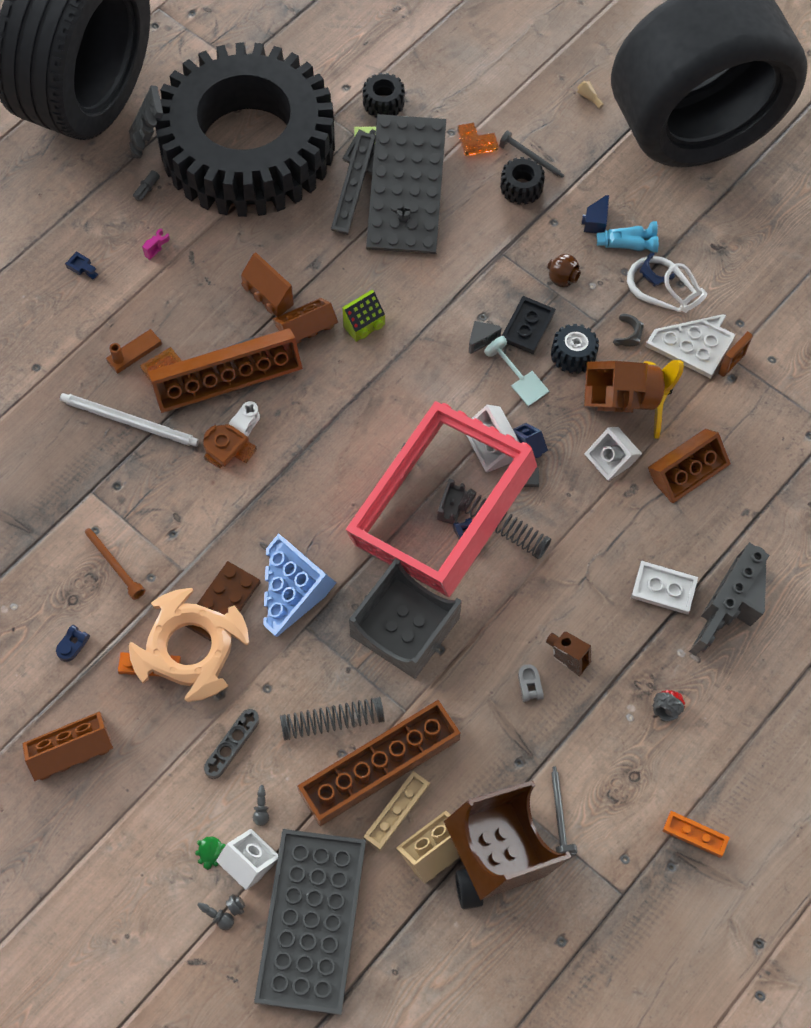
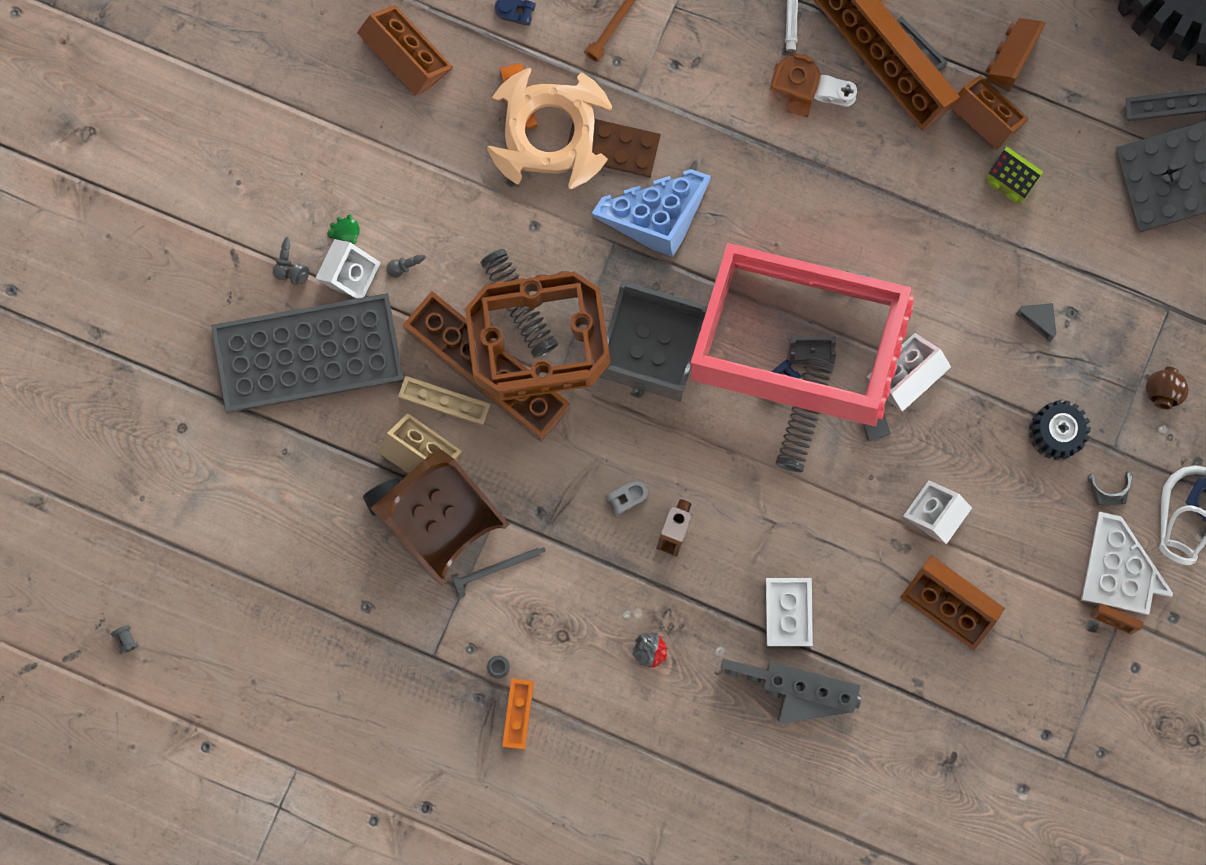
camera: 70 degrees right, 15 degrees up
(234, 745) = (462, 208): dark grey beam -> none
(373, 753) = (514, 294): none -> dark orange panel
(527, 387) = (993, 393): light aqua piece -> none
(528, 324) = (1076, 367): black plate -> none
(533, 437) = (920, 412): dark blue slope -> none
(630, 386) = (1020, 505): dark orange brick -> none
(648, 838) = (498, 667): none -> dark grey plate

